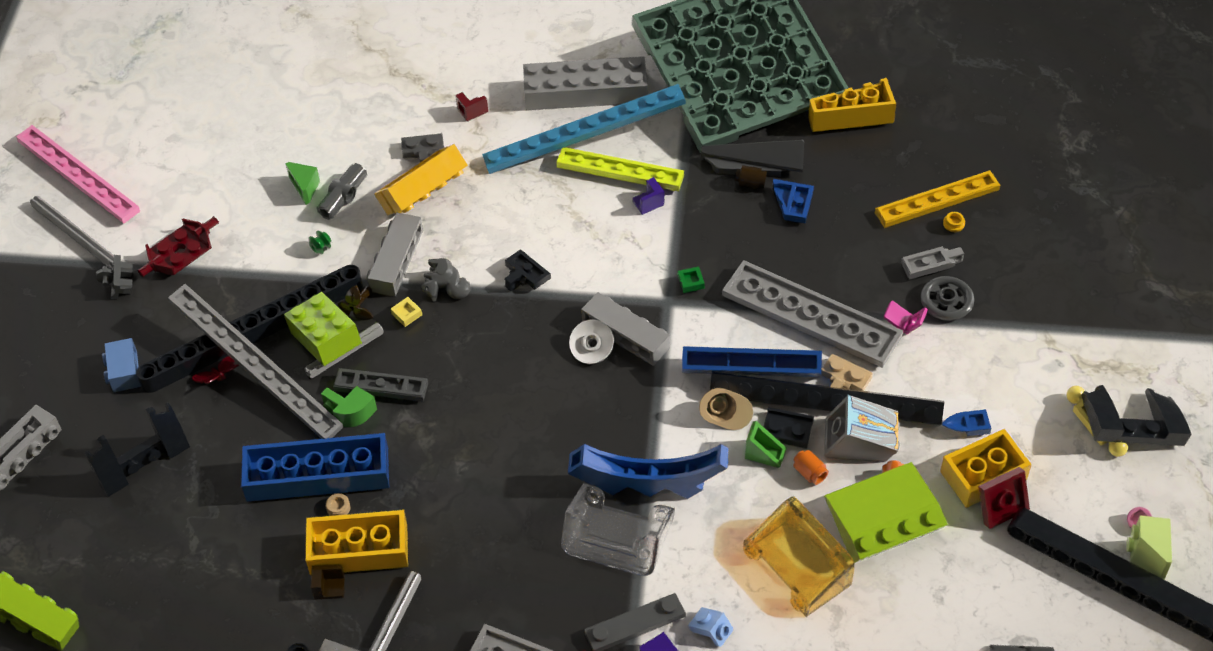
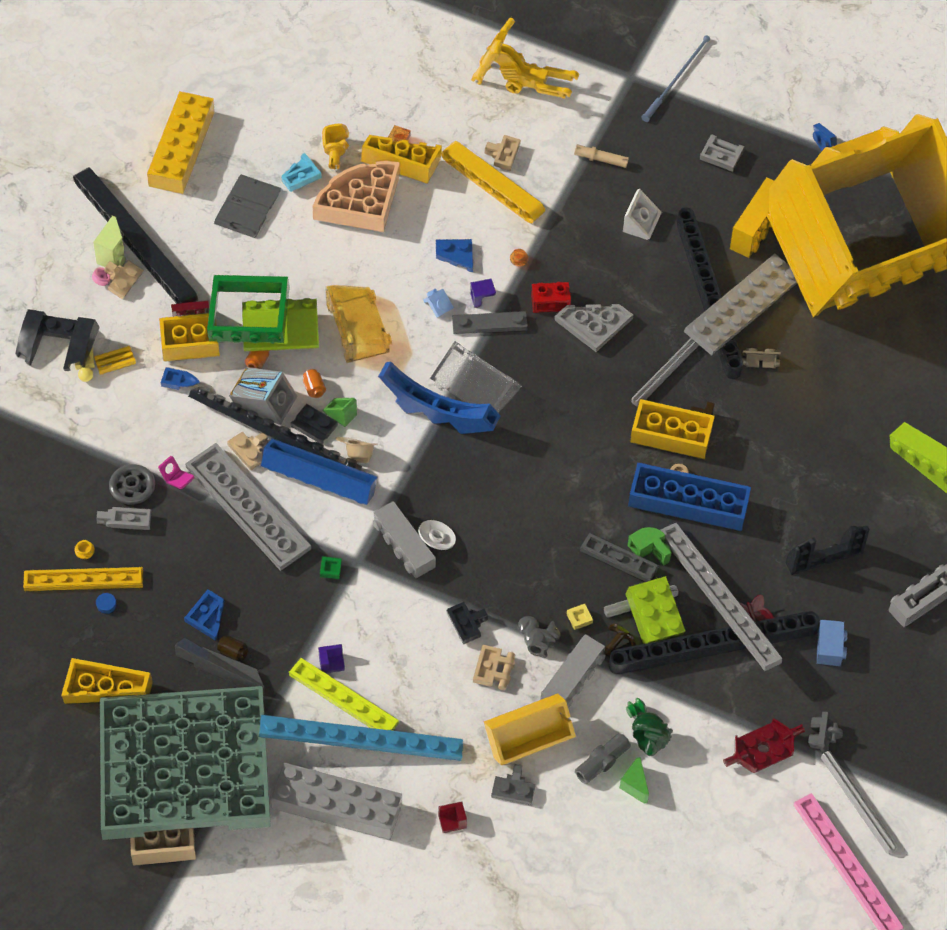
camera: 165 degrees left, 5 degrees up
(297, 216) = (651, 733): none -> dark green hair
(487, 239) = (487, 667): none -> tan plate
(900, 183) = (106, 603): none -> blue tile
(937, 529) = (249, 284): none -> green window
(1074, 421) = (114, 358): none -> yellow tile
(1112, 525) = (122, 277): none -> tan hinge

